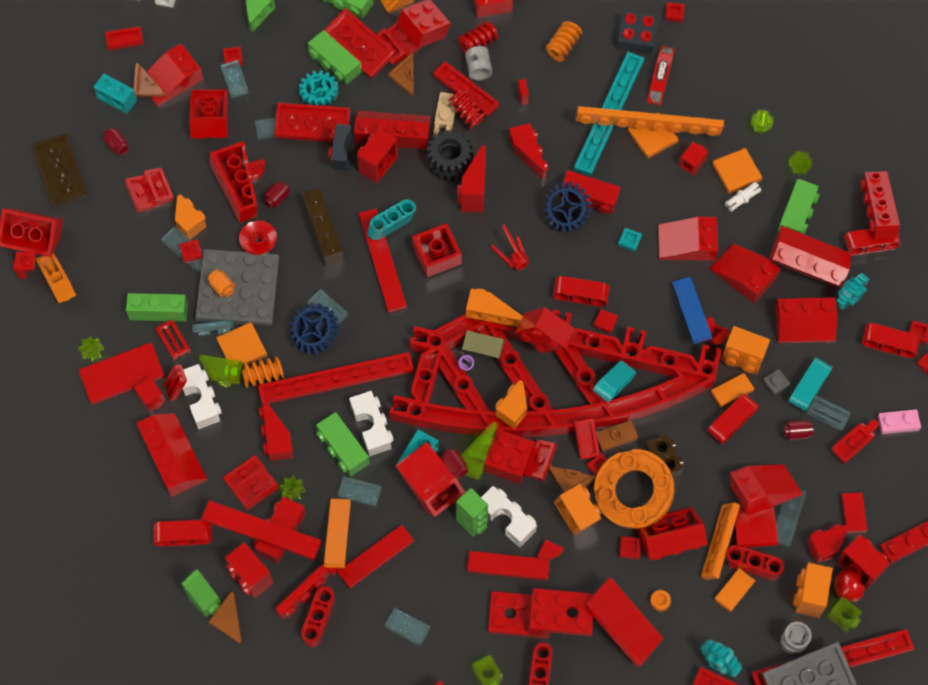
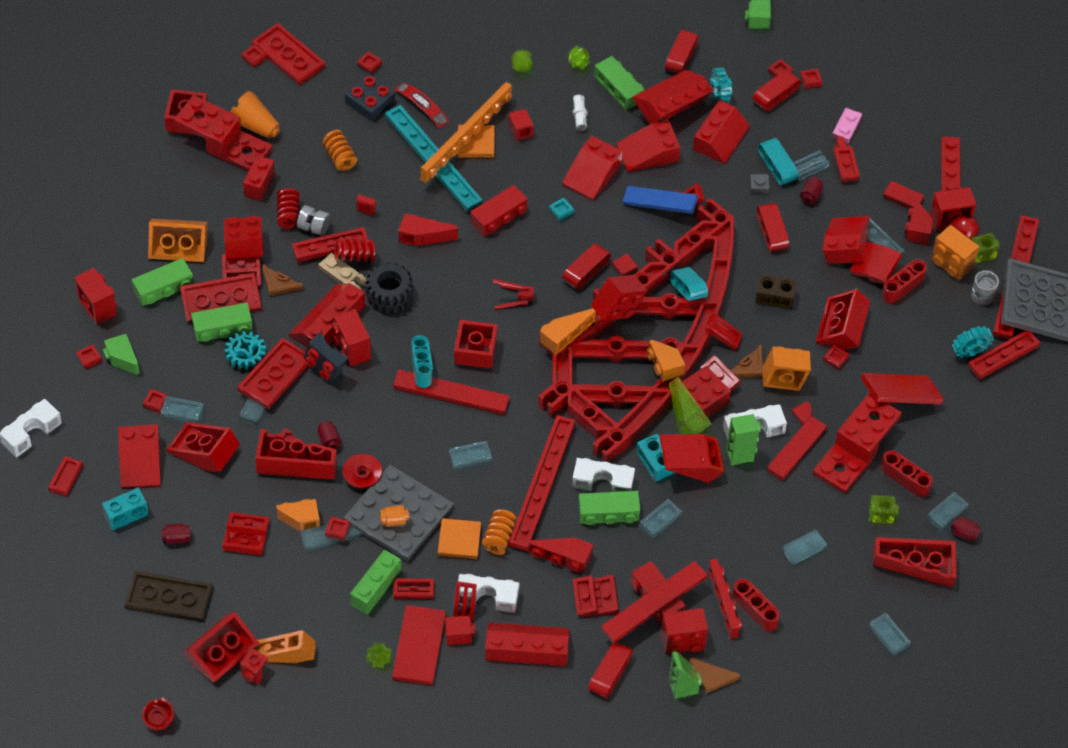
camera: 60 degrees left, 10 degrees down
(145, 85) = (134, 479): dark orange tile -> none
(222, 327) = (430, 542): clear light blue plate -> none
(222, 369) = (475, 560): clear neon green slope -> none
(288, 485) = (624, 565): clear neon green gear -> none
(308, 333) = (487, 487): dark blue gear -> none
(323, 227) = (389, 416): dark brown brick -> none
(337, 533) = (691, 549): orange tile -> none
(375, 556) = (727, 537): red tile -> none
(455, 463) = (690, 426): dark red brick -> none
(468, 358) = (600, 371): medium lavender hinge -> none
(472, 188) = (434, 281): red slope -> none
(483, 344) = (592, 354): olive tile -> none
(566, 198) = (517, 235): dark blue gear -> none
(595, 465) = (751, 339): red tile -> none
(616, 436) = (733, 311): dark orange plate -> none
(623, 463) = (796, 296): orange plate -> none
(660, 600) = (894, 361): orange tile -> none
(720, 541) = (873, 292): orange tile -> none
(732, 390) = (746, 215): orange tile -> none
(734, 590) = (917, 307): orange tile -> none
(737, 170) = (552, 104): orange tile -> none
(745, 350) = (723, 182): orange brick -> none
(880, 205) = (658, 26): red brick -> none

